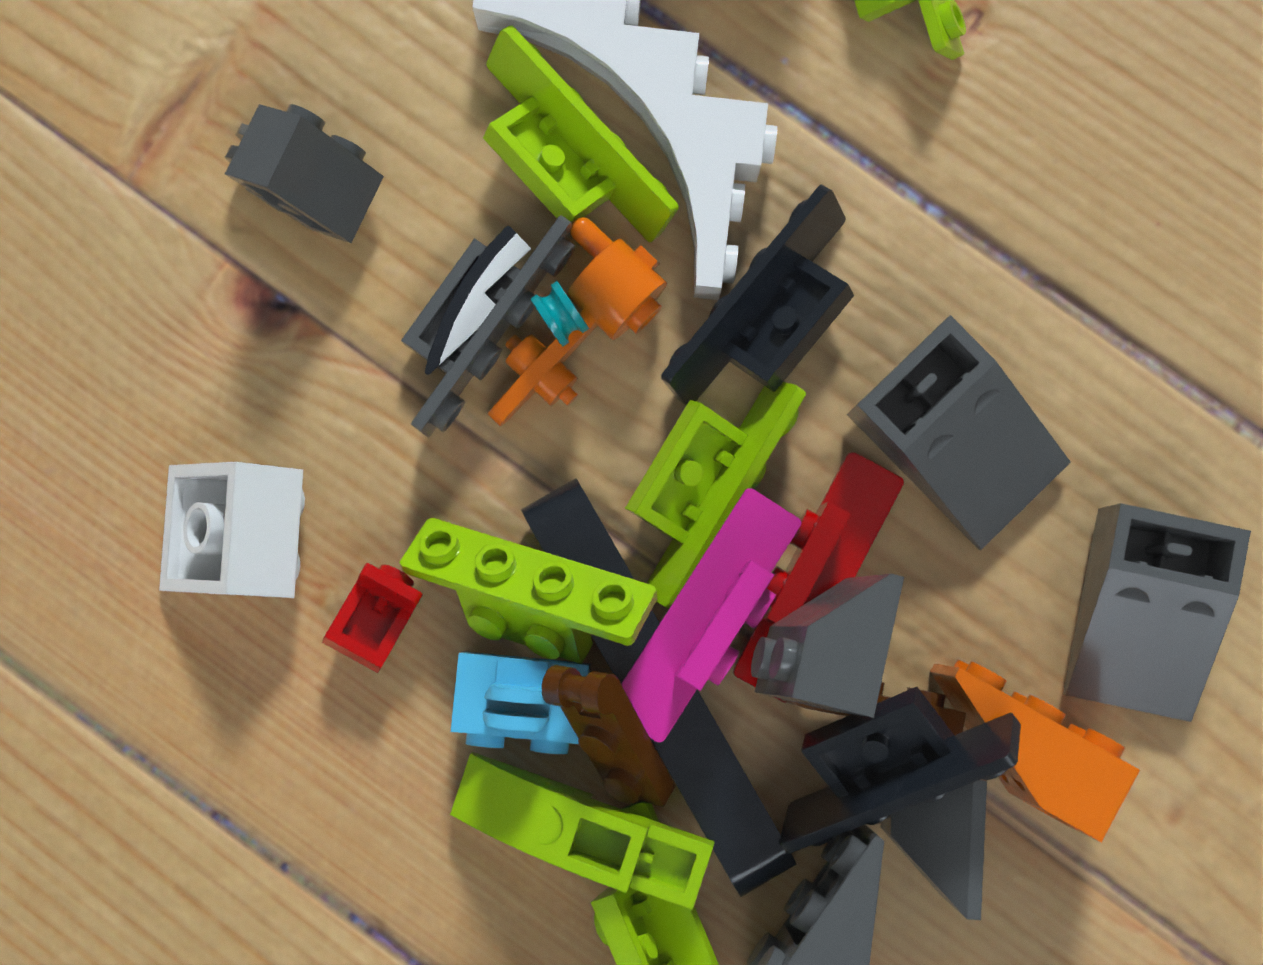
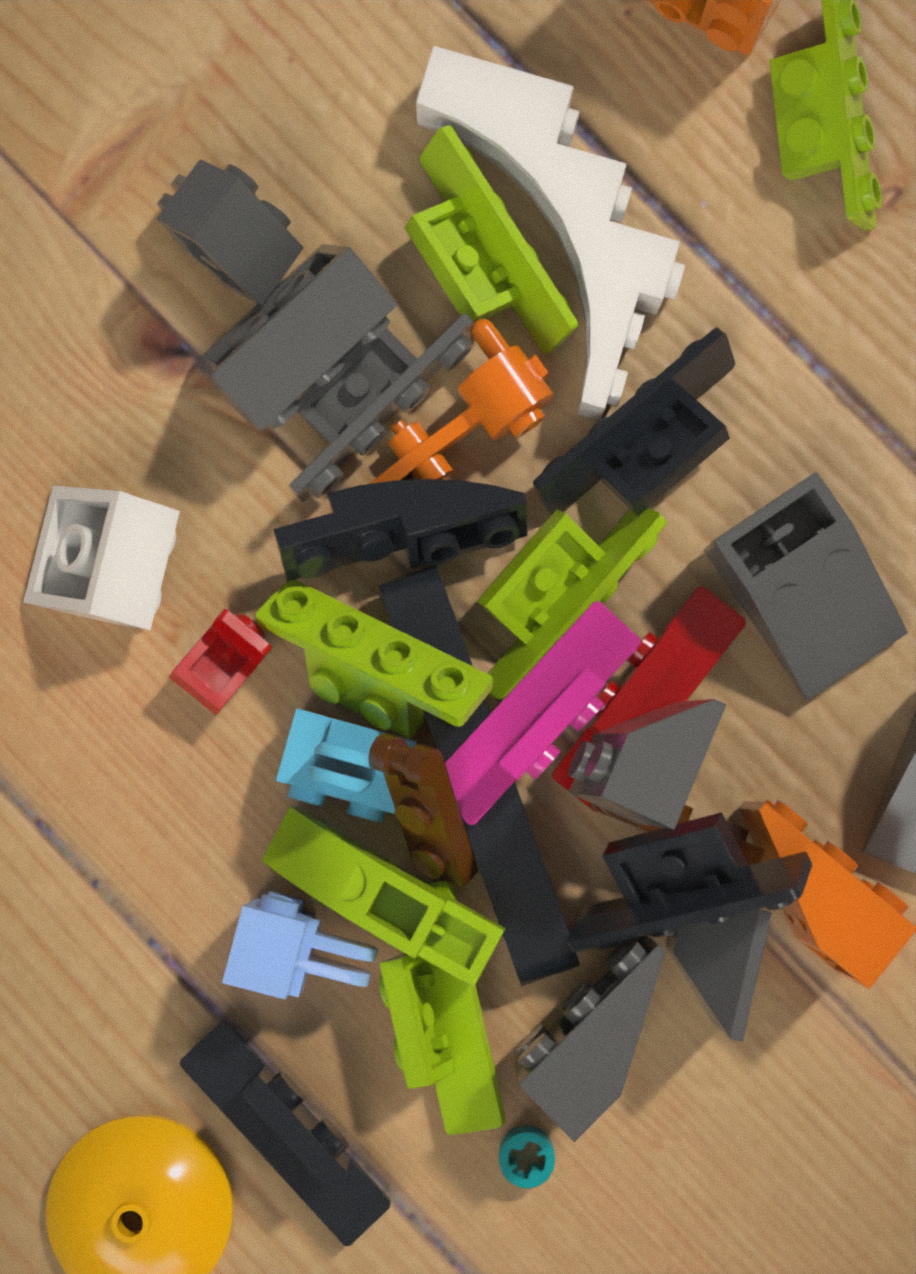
camera: 10 degrees right, 0 degrees up
(393, 268) = (297, 336): none -> dark grey slope
(470, 303) = (364, 381): sticker -> none
(482, 905) = (277, 946): none -> light blue brick
(554, 431) = (423, 516): none -> black slope
(559, 313) = (447, 405): teal bush -> none

